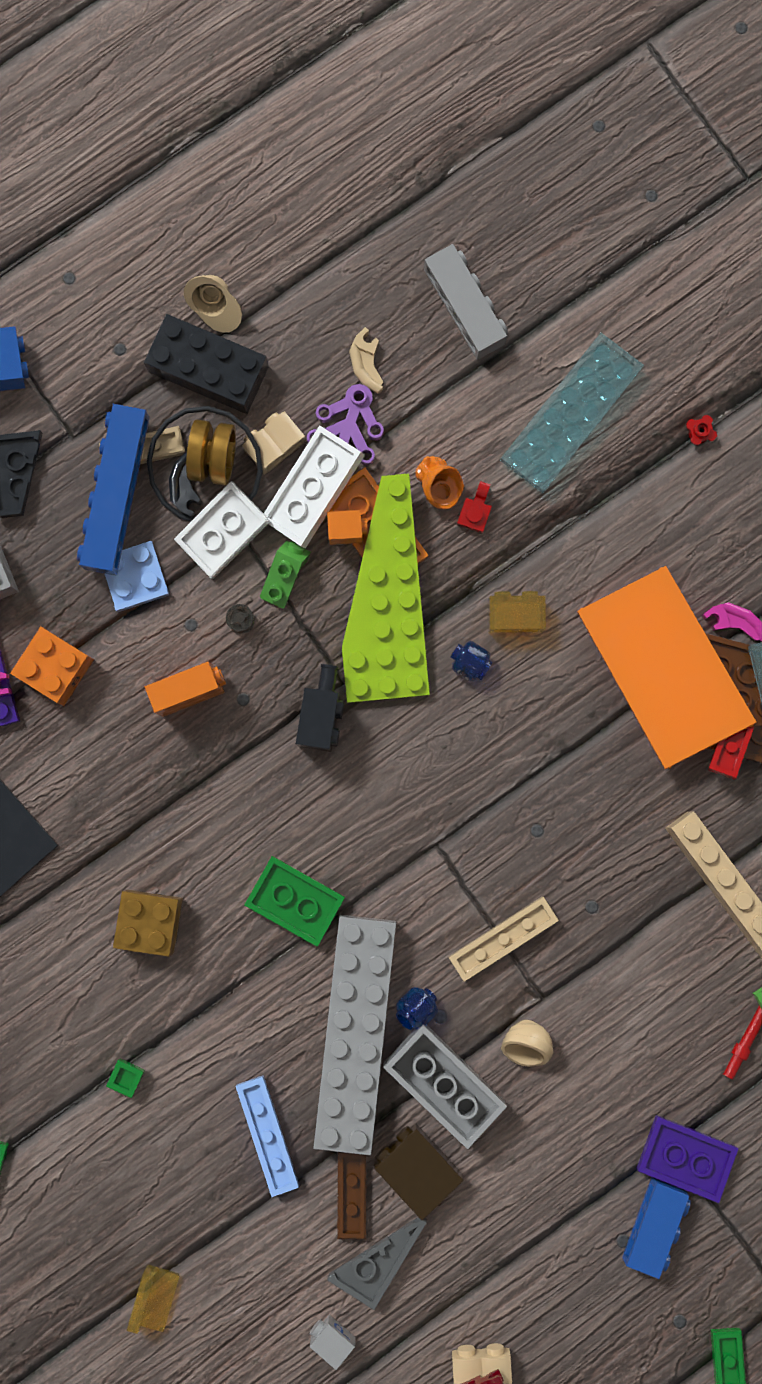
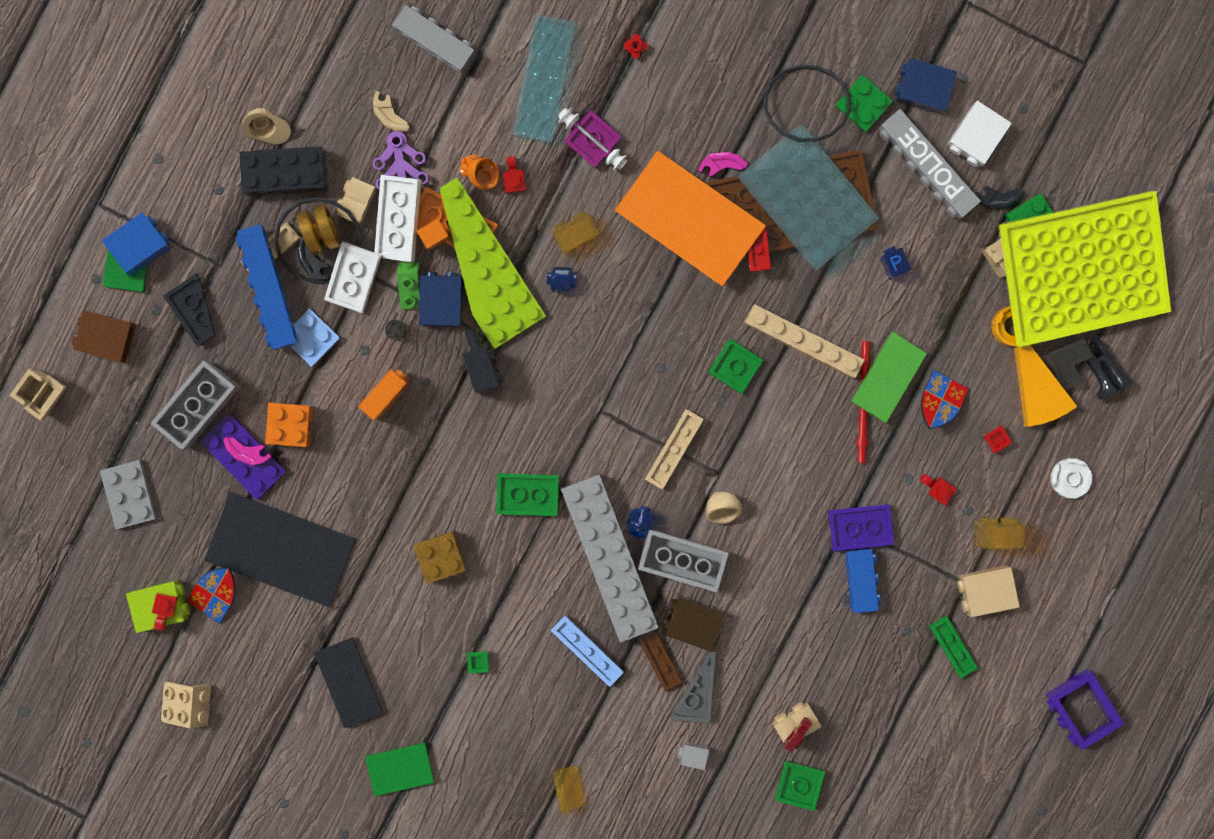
camera: 30 degrees left, 5 degrees up
(313, 610) = (440, 299): none -> dark blue brick
(594, 512) = (592, 139): none -> magenta plate
(630, 875) = (735, 366): none -> green tile

